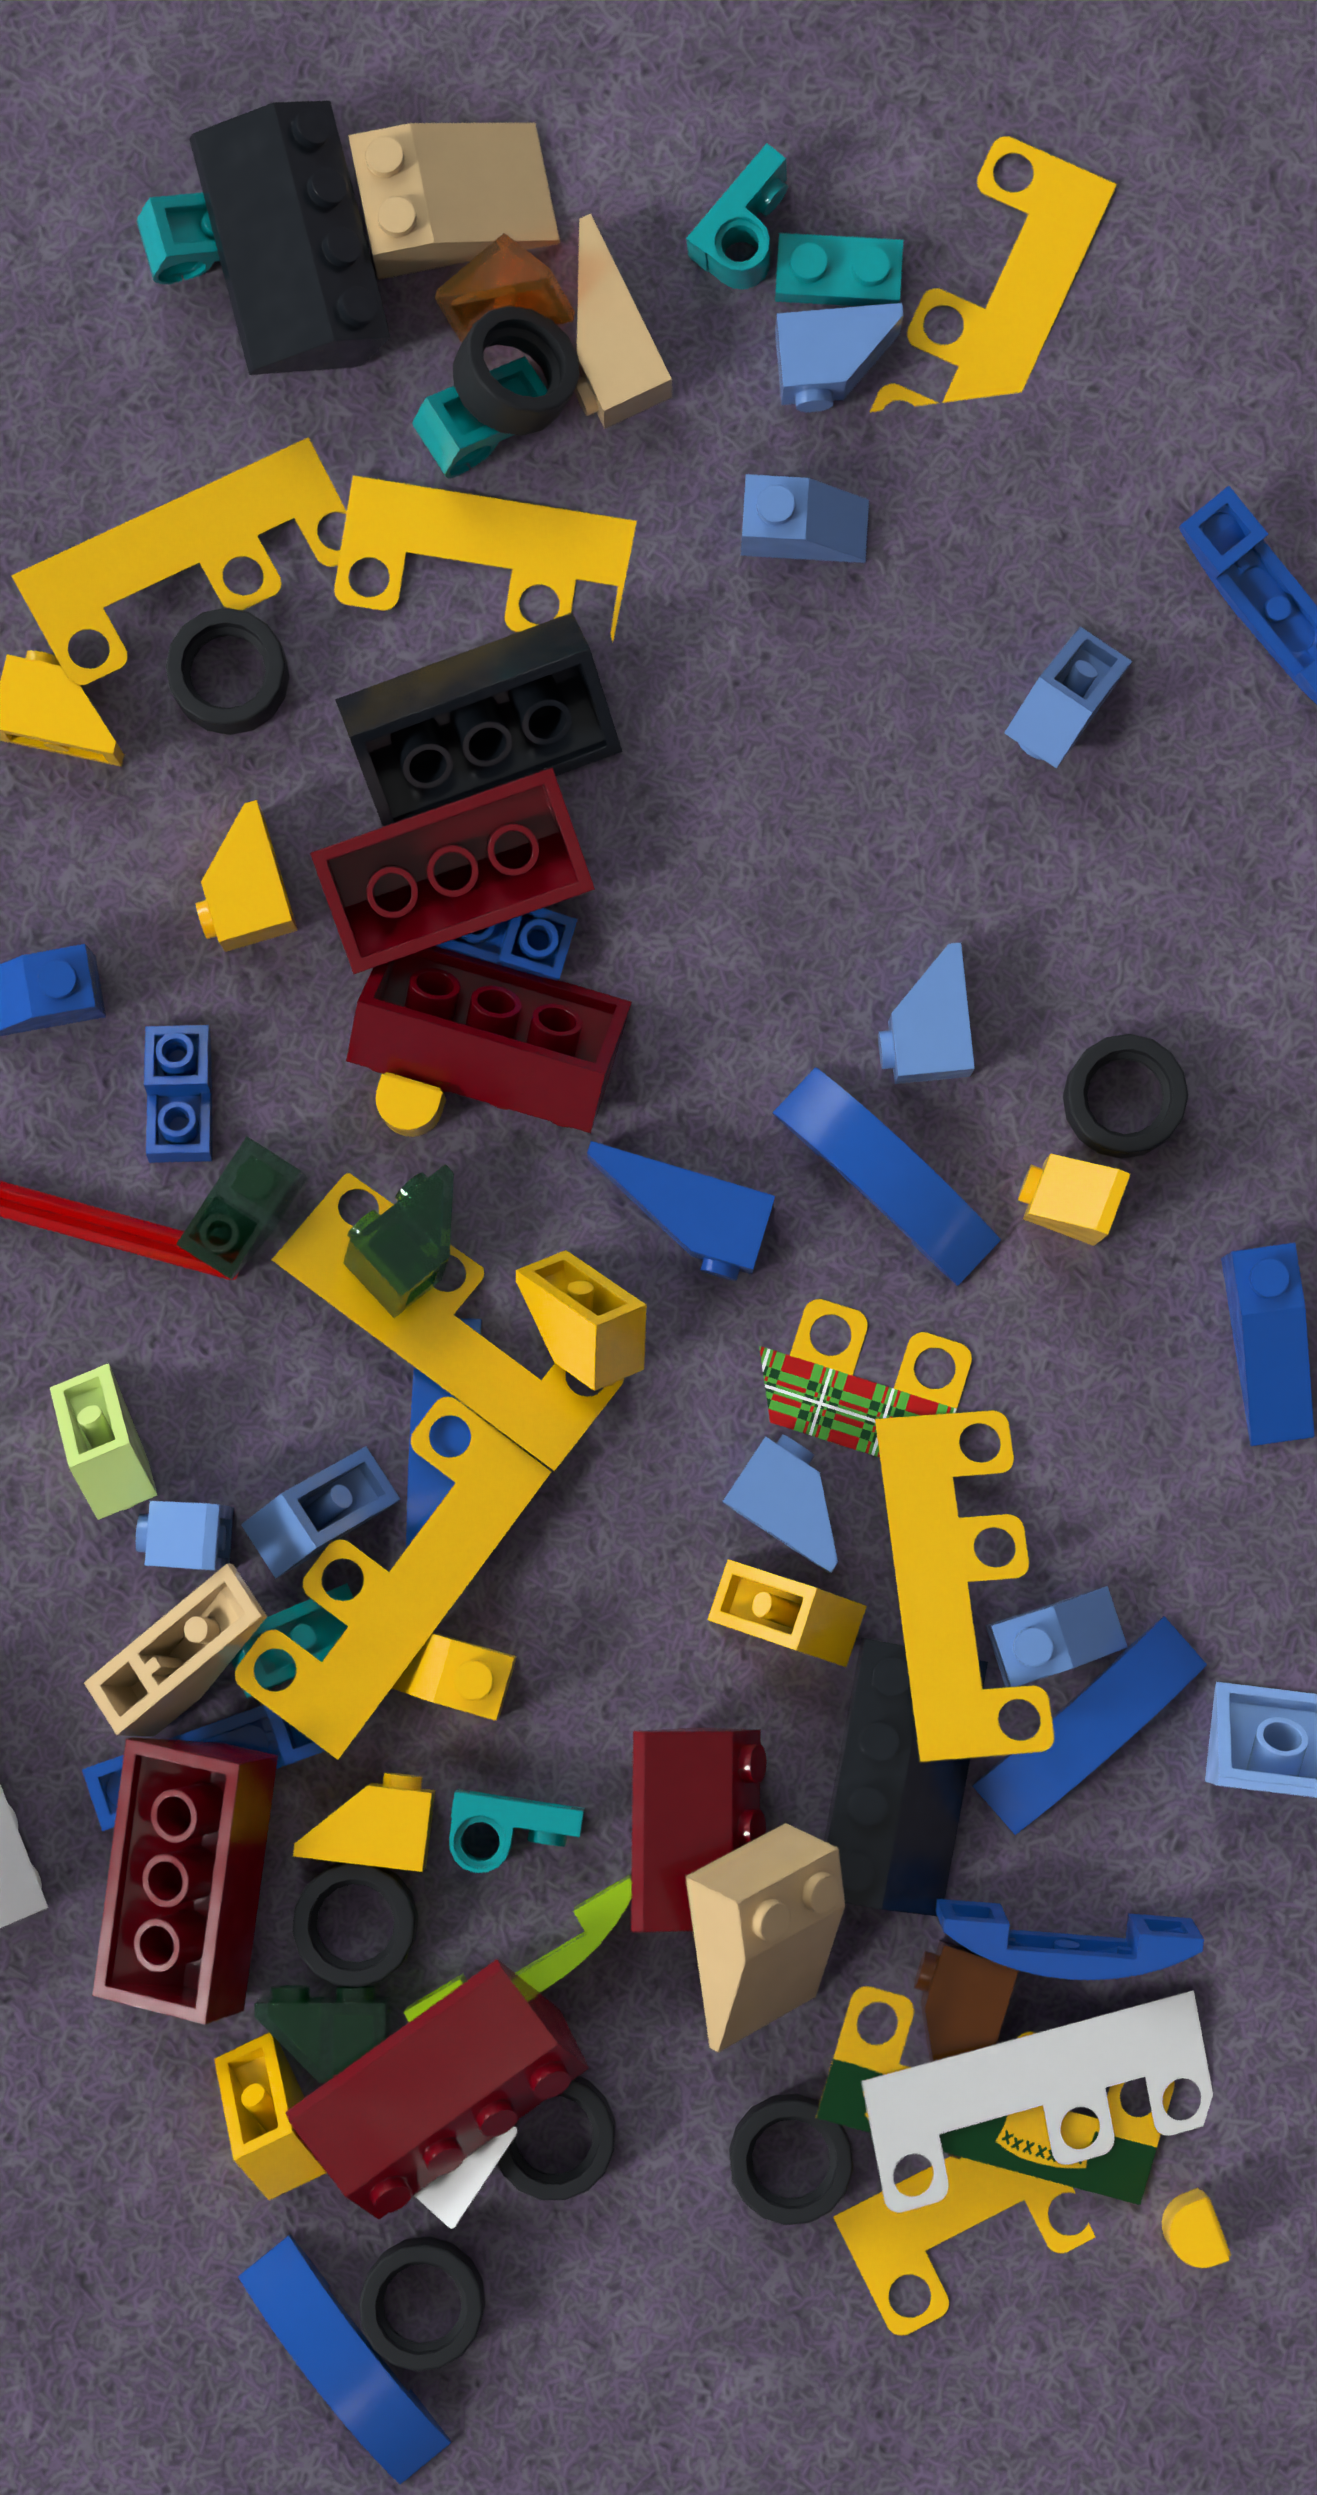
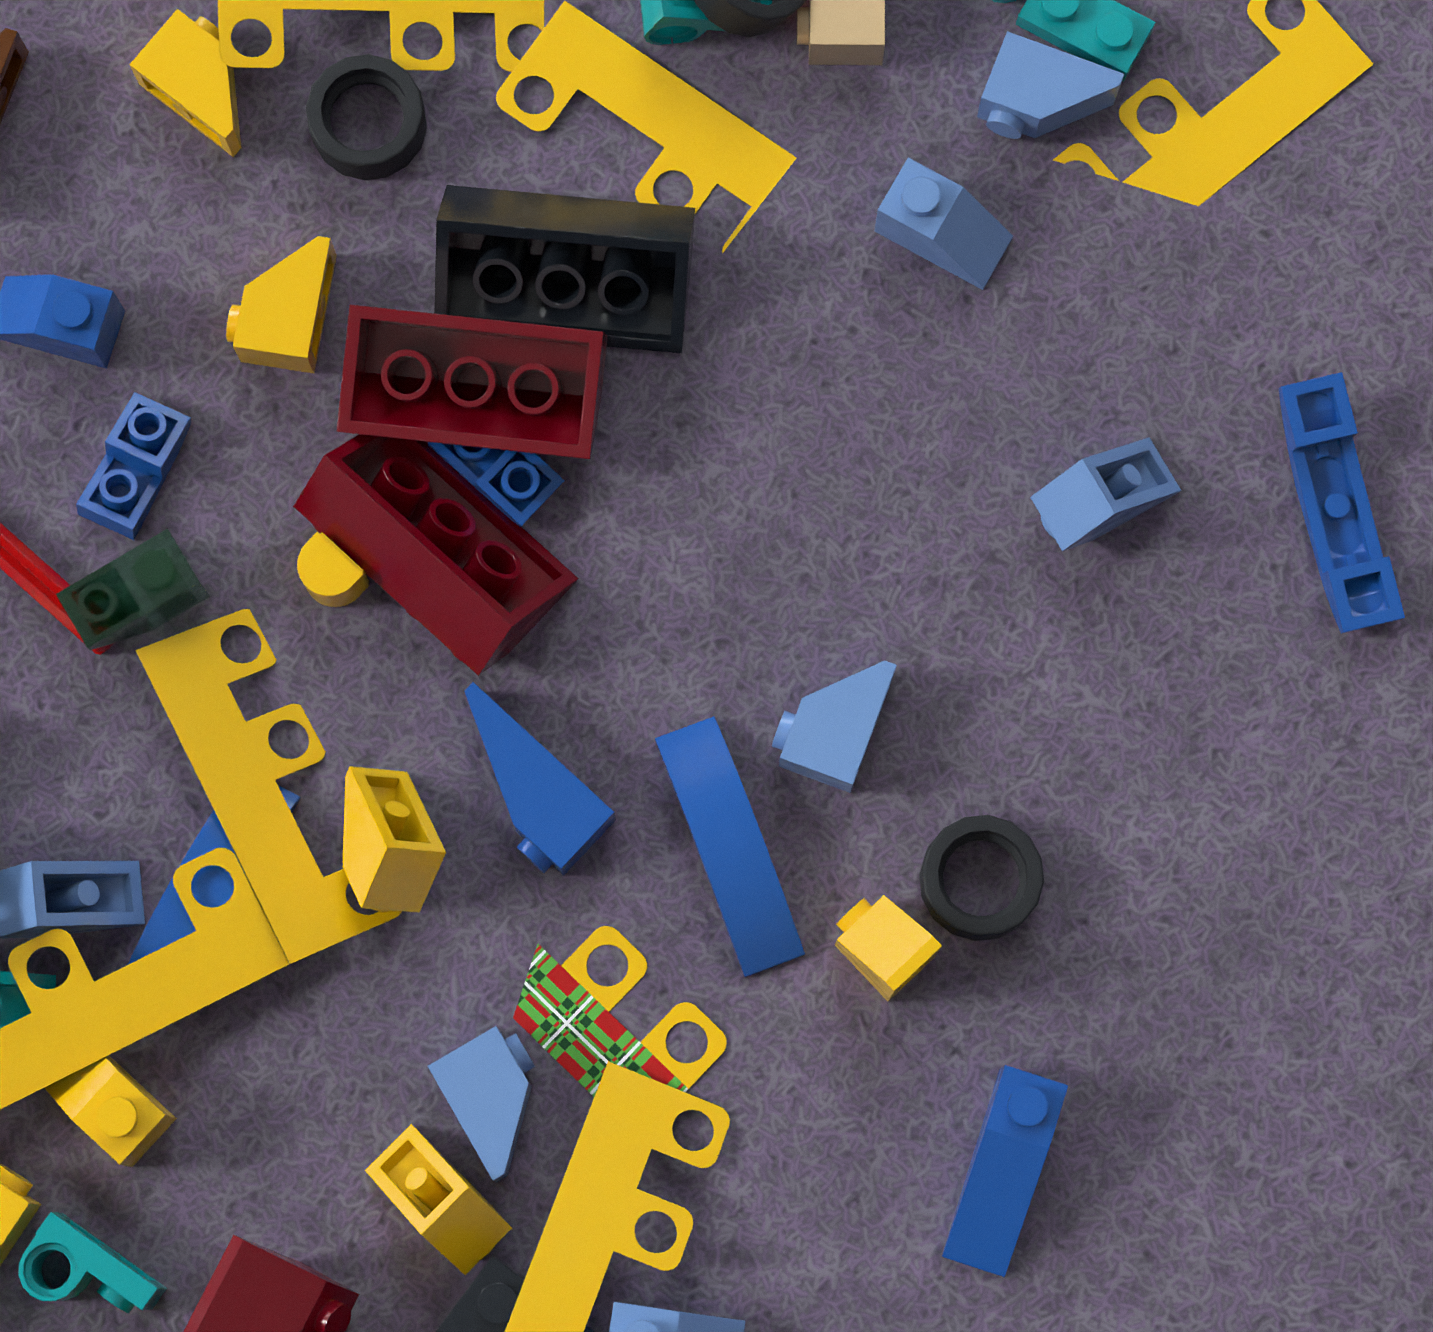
camera: 25 degrees right, 5 degrees down
(407, 1245) = (260, 695): clear green slope -> none

